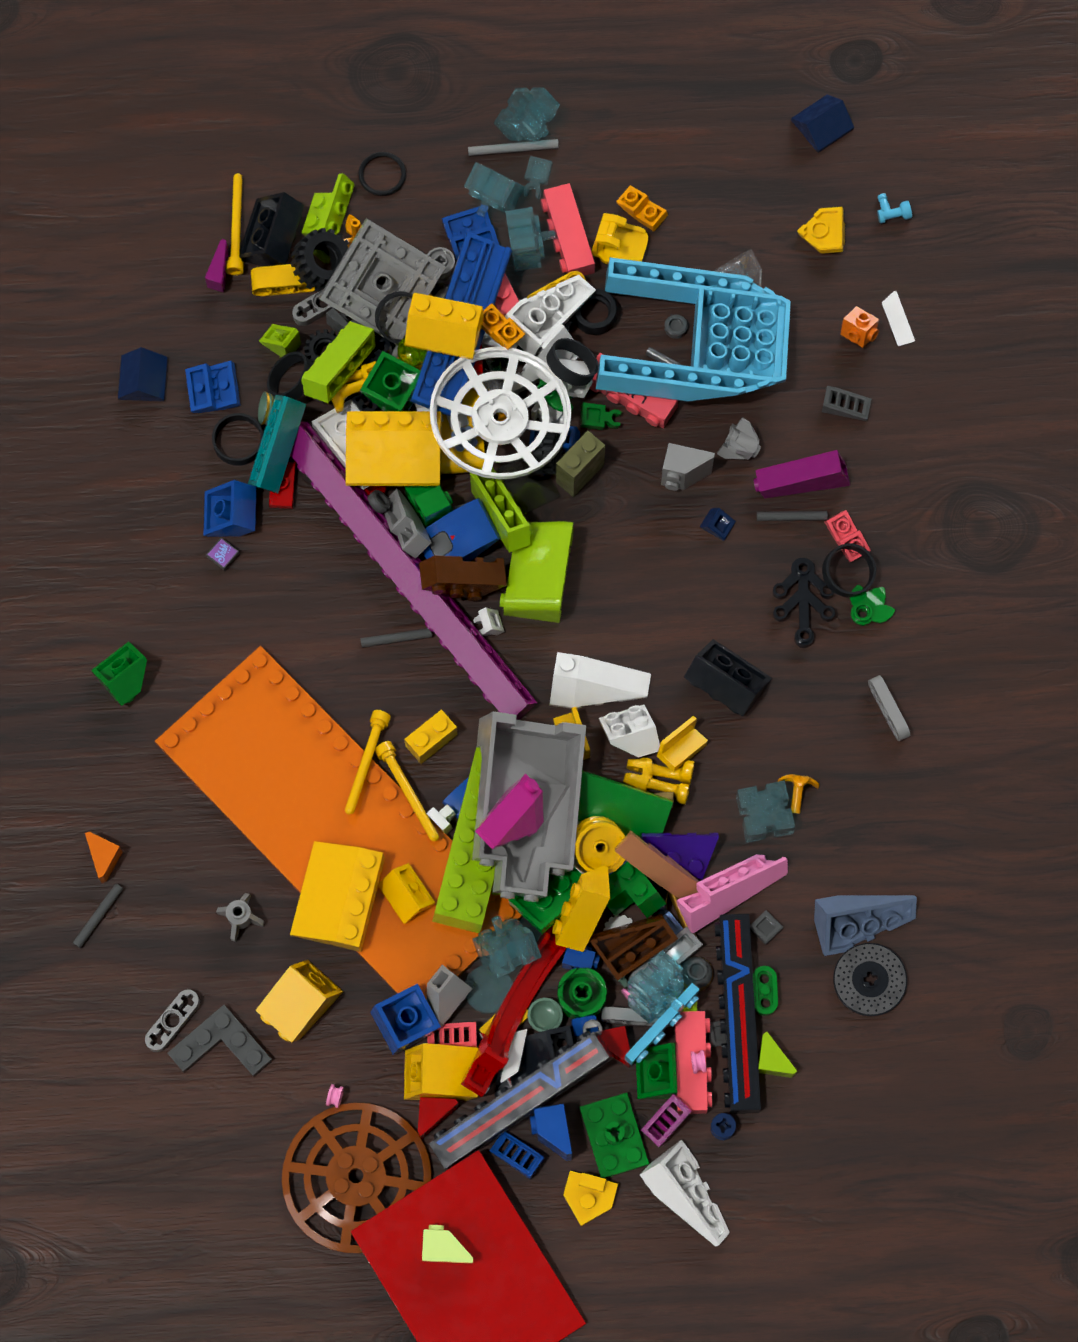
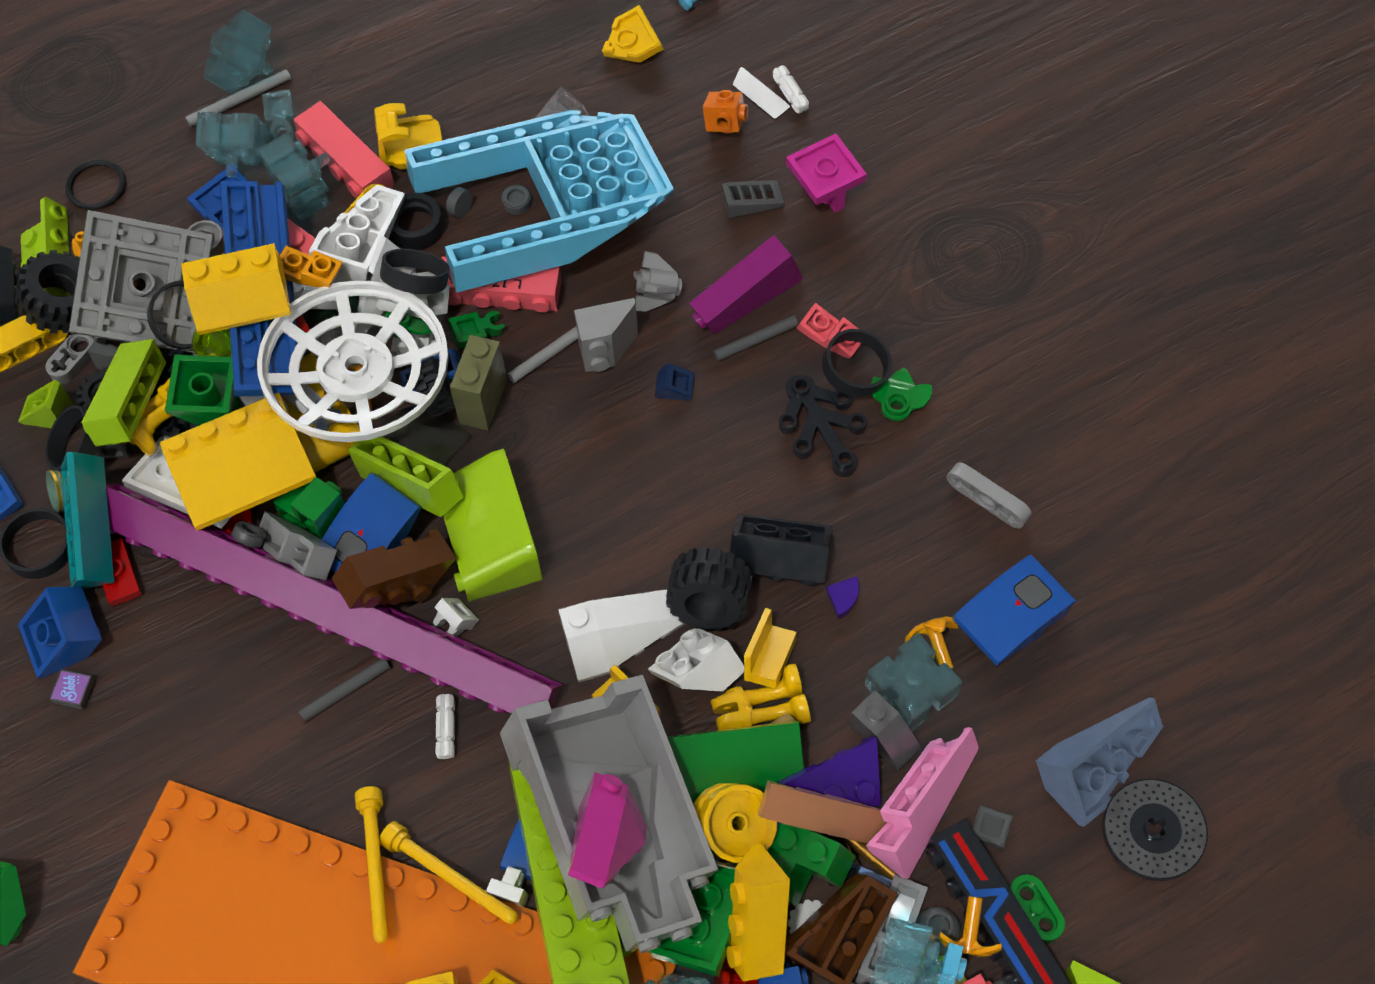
camera: 25 degrees left, 10 degrees down
(431, 736) = (446, 790): yellow brick -> none
(450, 692) = (445, 726): none -> white axle
(633, 311) = (459, 202): none -> dark grey tile
(640, 208) = (416, 99): light orange slope -> none
(642, 458) = (543, 355): none -> light grey bar
(662, 685) = (709, 589): none -> black tyre
(709, 989) = (970, 932): none -> light orange plant
(731, 833) = (883, 721): none -> flat silver slope
(753, 730) = (843, 595): none -> dark purple tile
(859, 795) = (1014, 610): none -> blue slope
(906, 412) = (826, 171): none -> dark pink bracket
(921, 328) = (790, 89): none -> white axle

